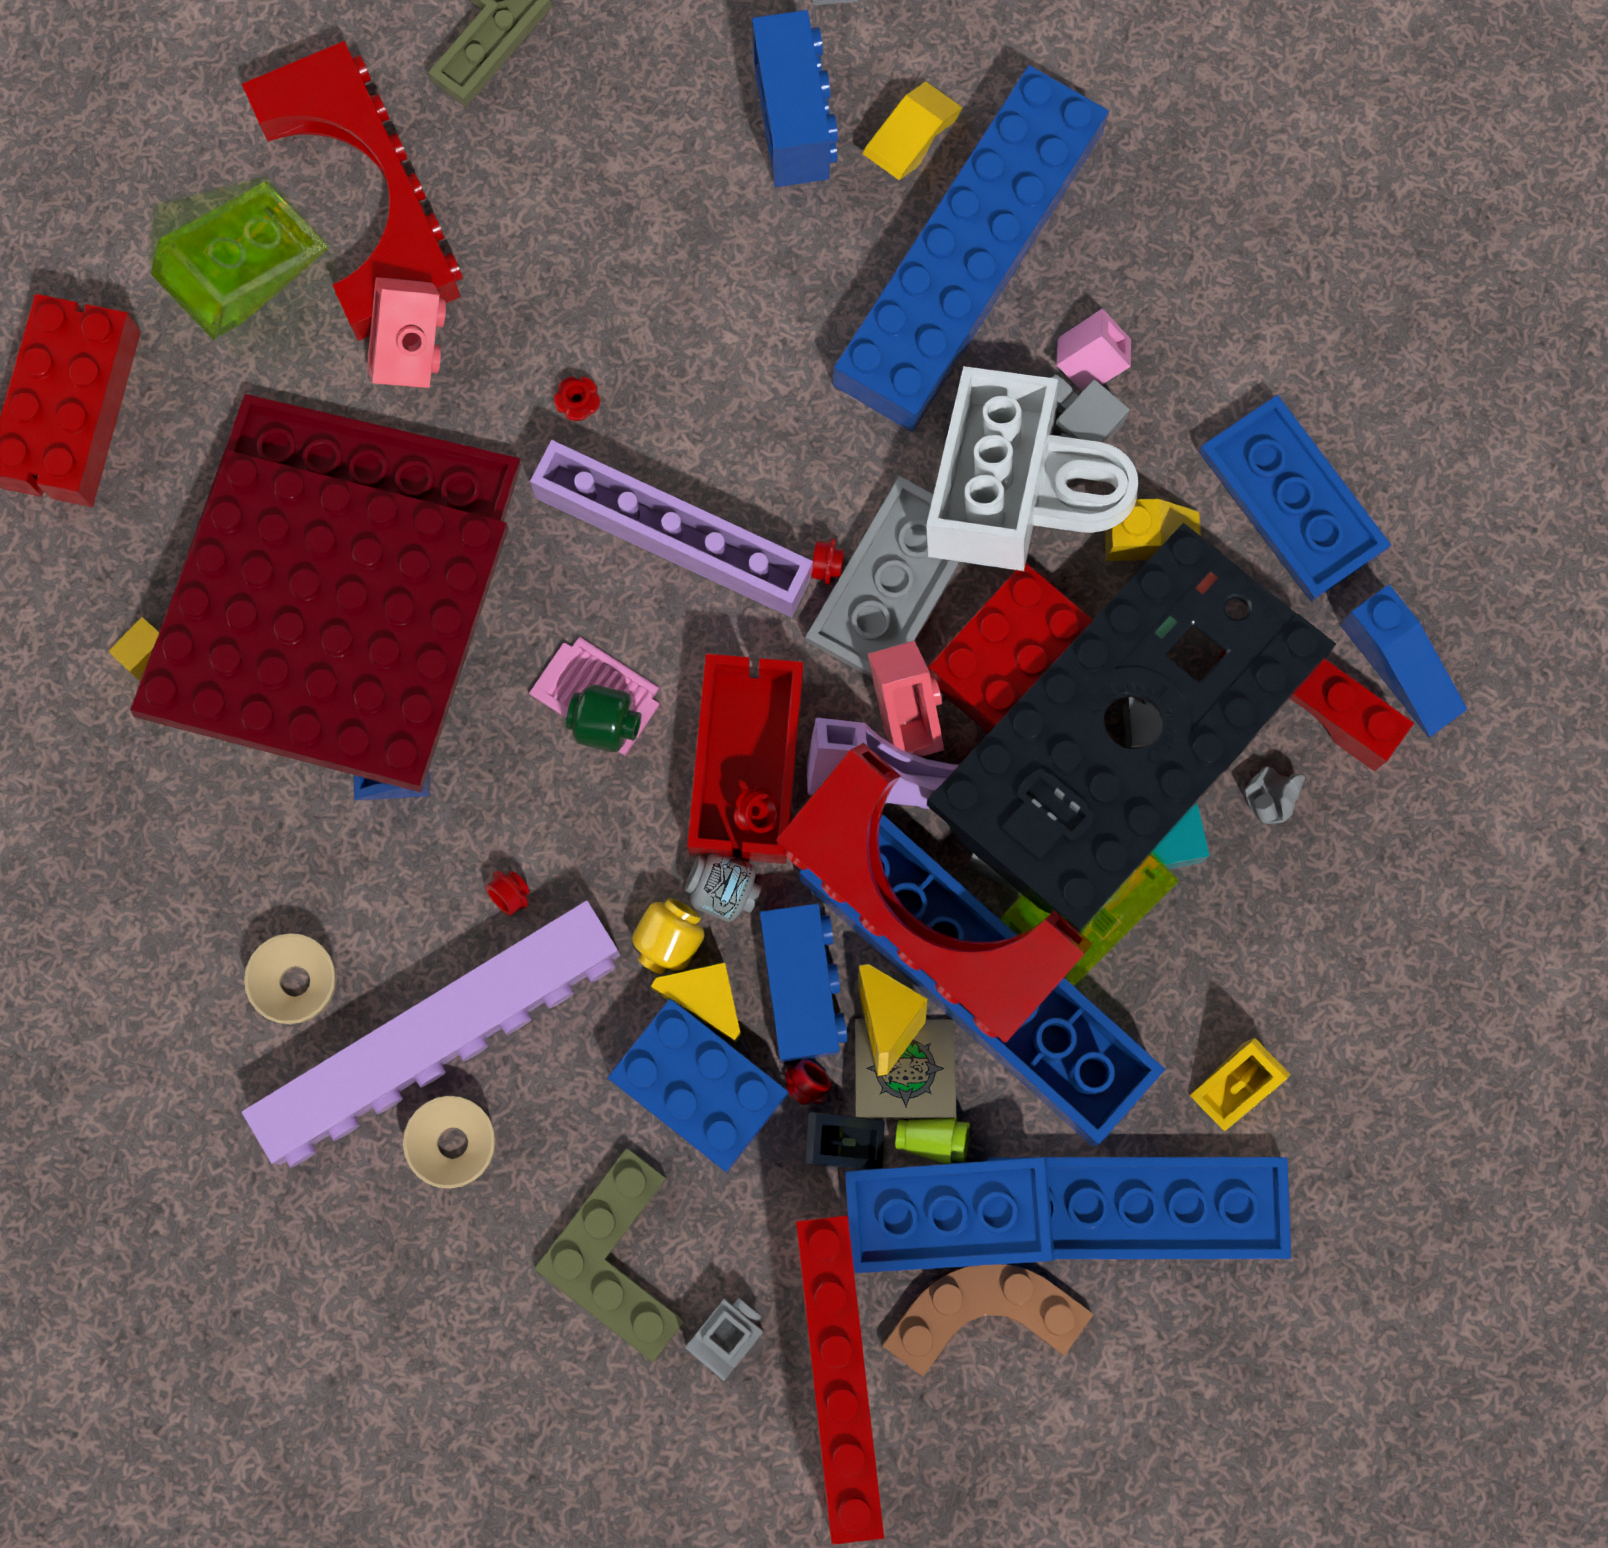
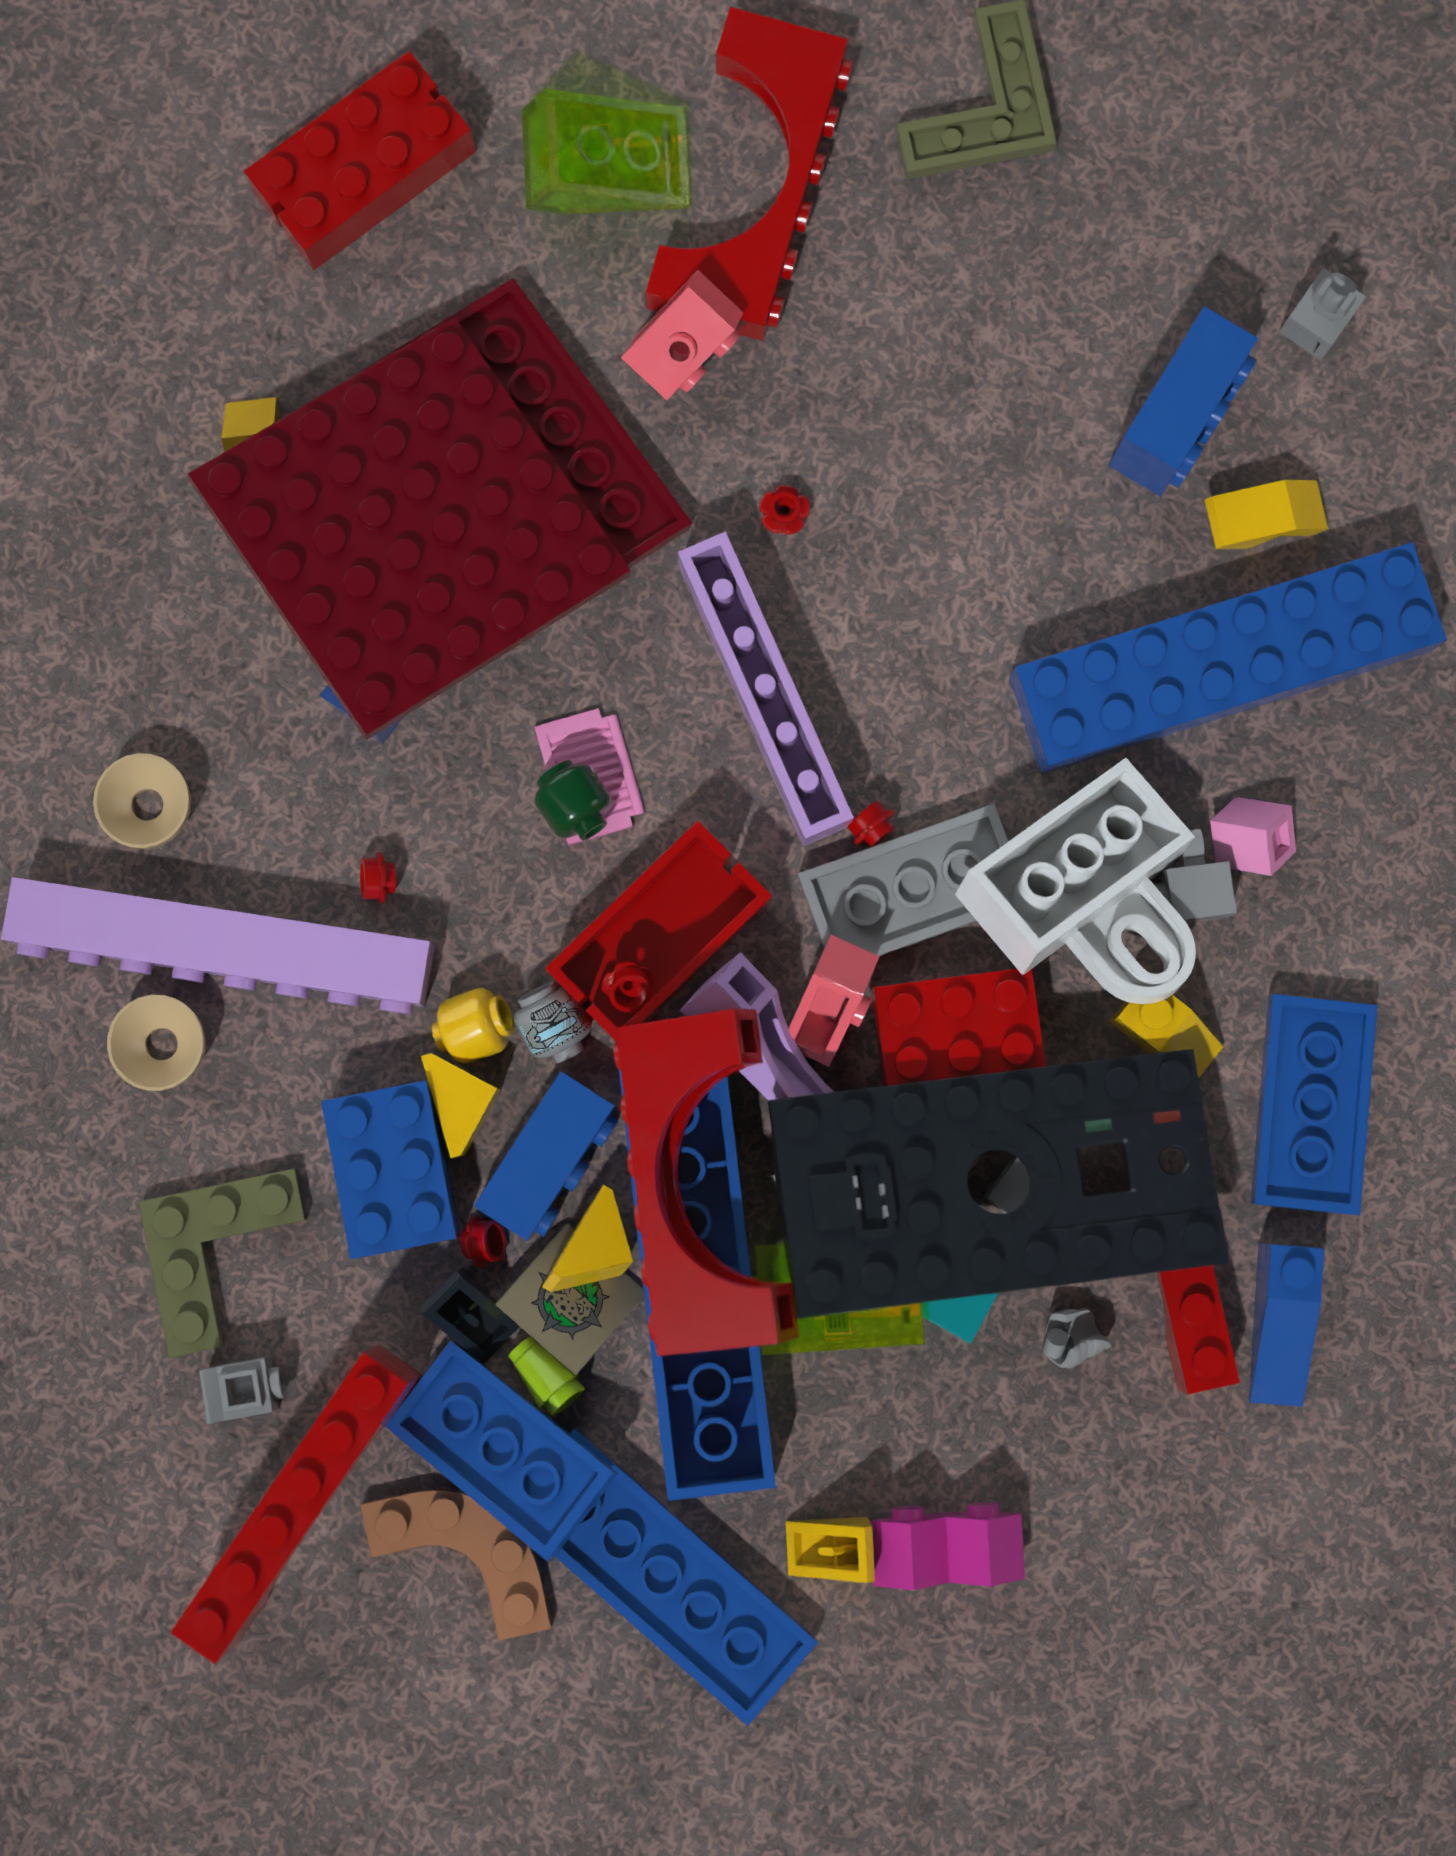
camera: 40 degrees right, 5 degrees up
(1319, 1011) = (950, 1547): none -> dark pink brick

